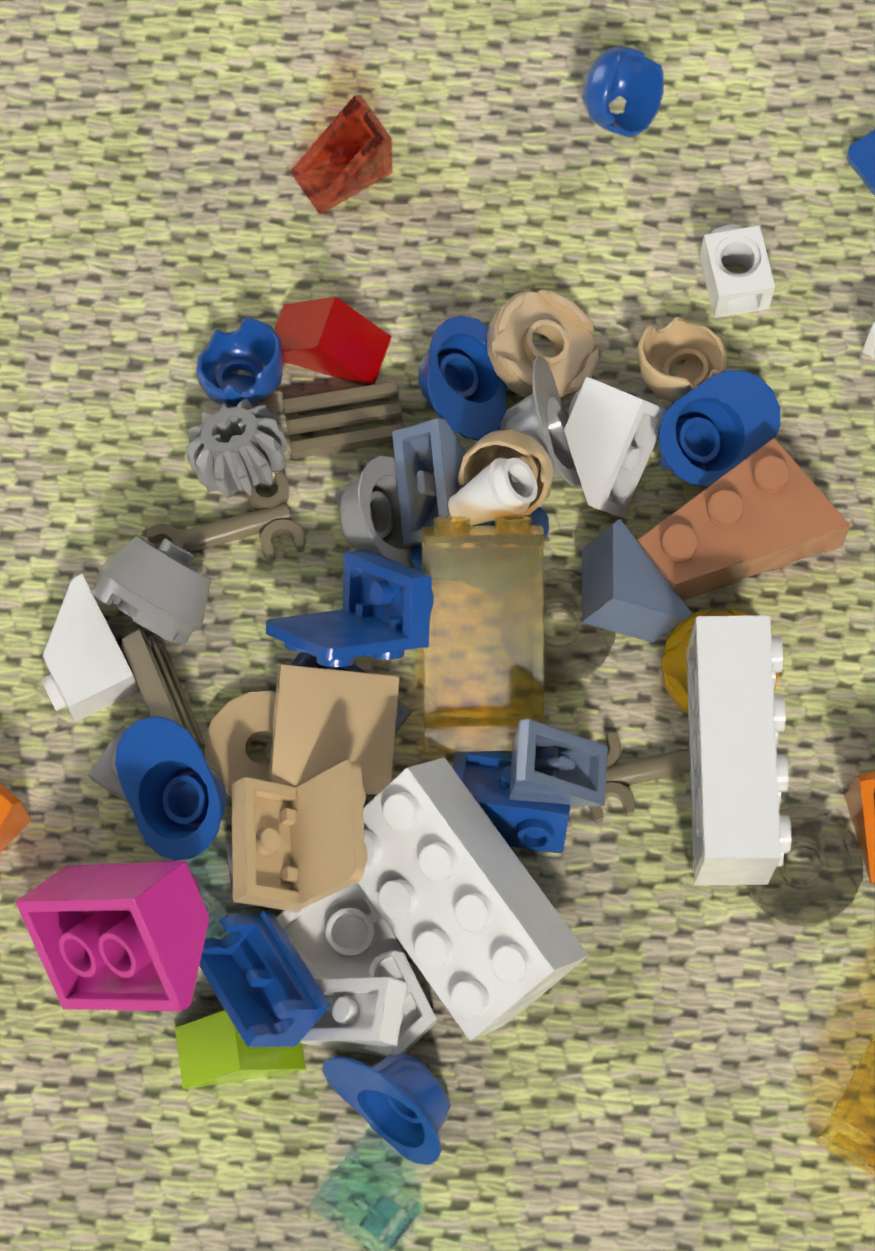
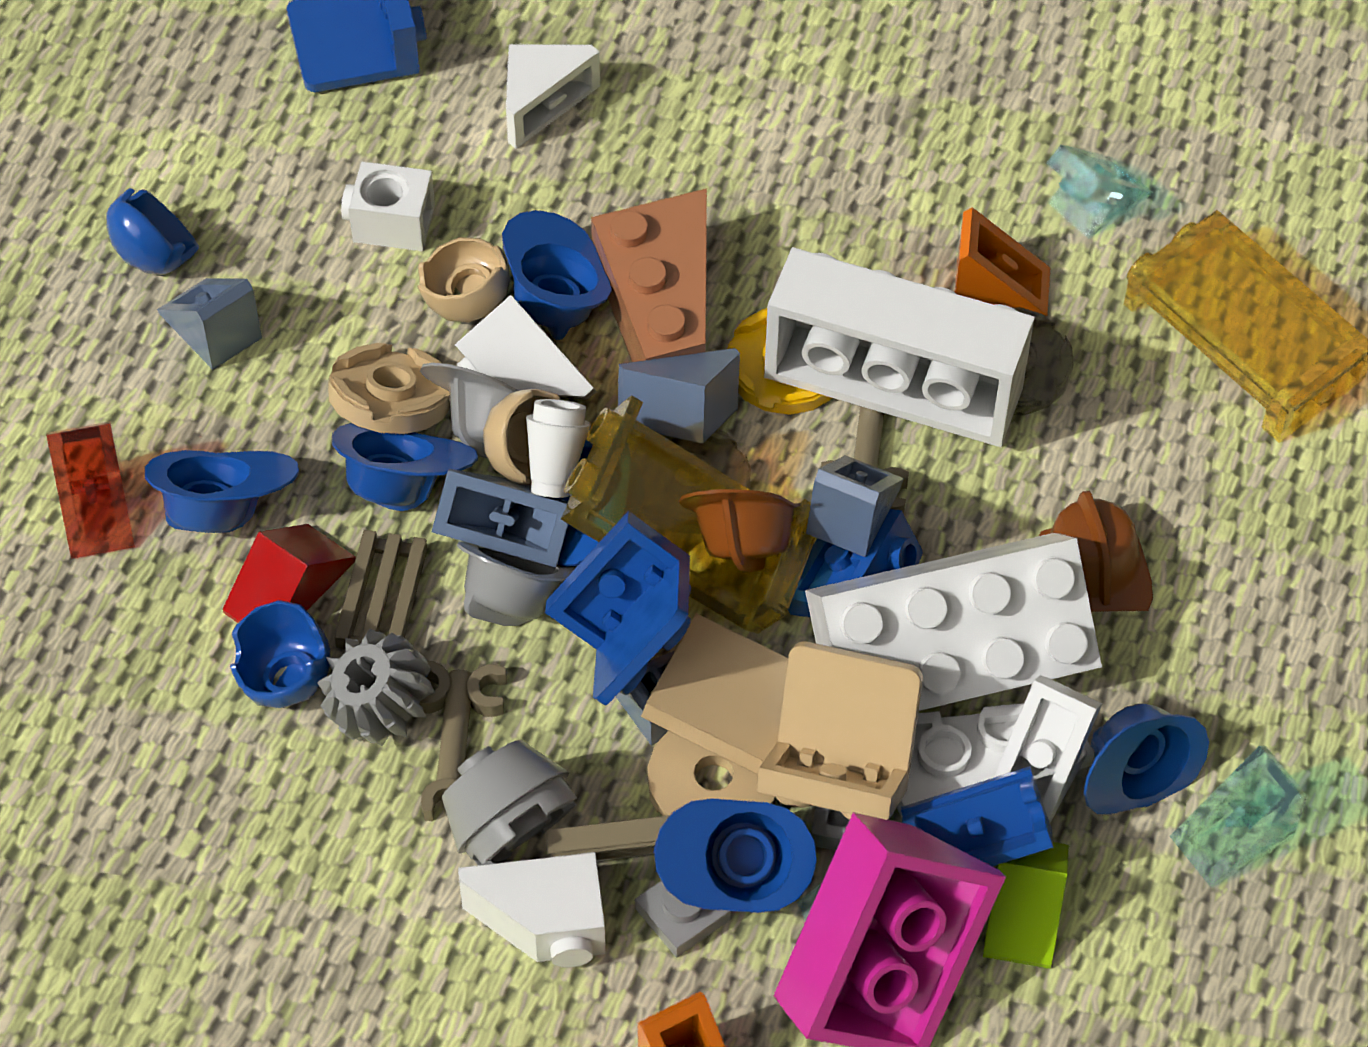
camera: 70 degrees left, 15 degrees down
(386, 246) = (217, 489): none -> blue piece
(485, 680) = (742, 524): none -> dark orange piece
(559, 176) = (215, 318): none -> sand blue slope
(609, 1009) = (1109, 554): none -> dark orange piece

